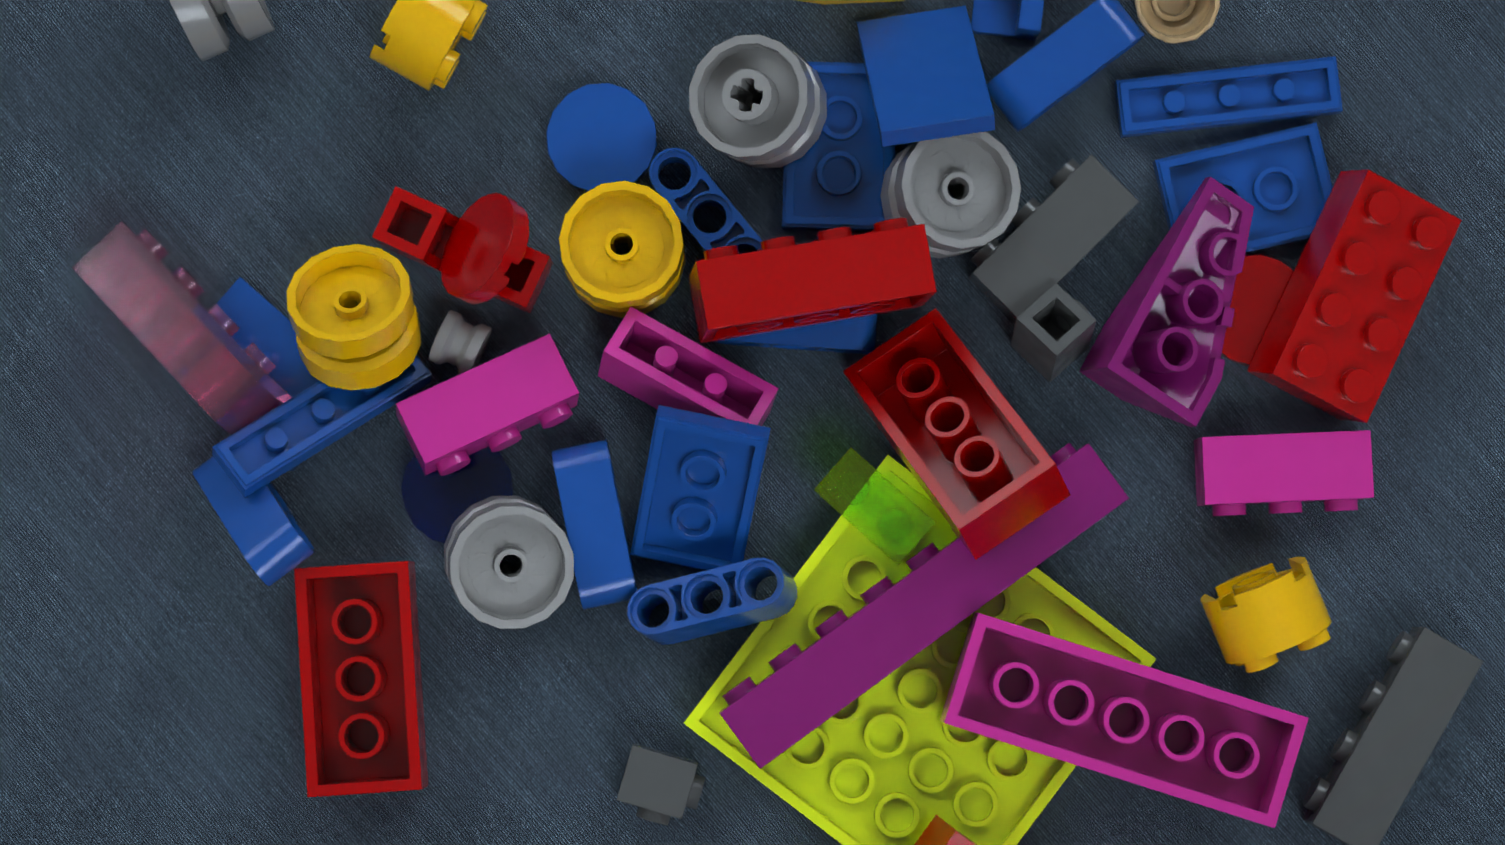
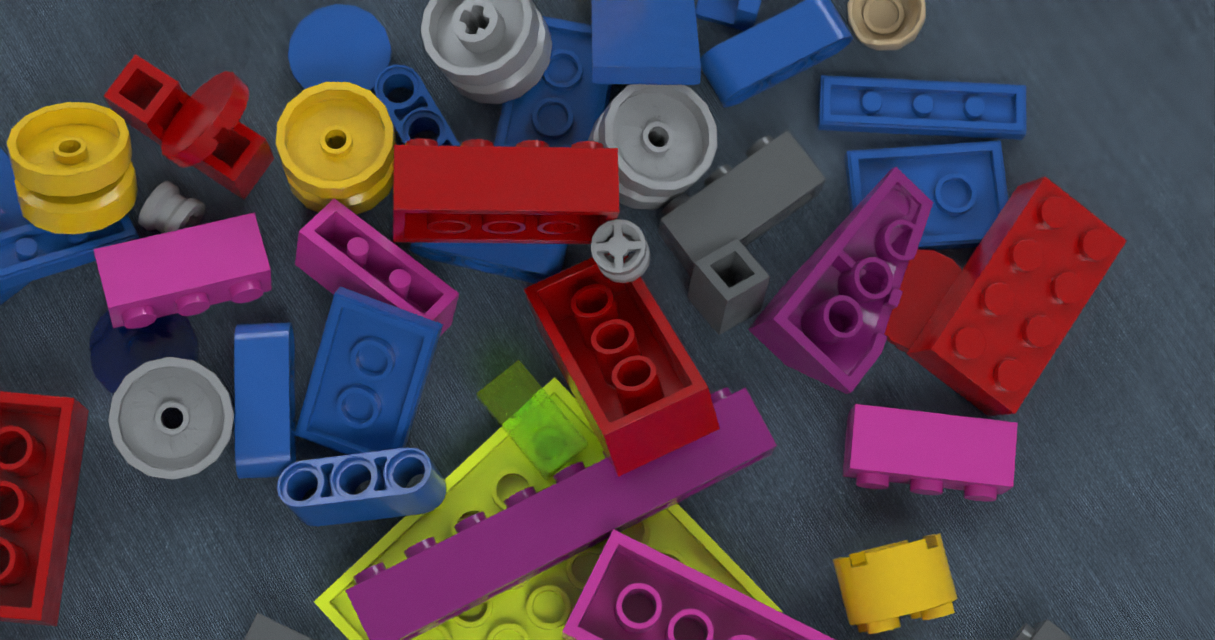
camera: 10 degrees right, 10 degrees down
(929, 316) = (618, 239): none -> light grey wheel

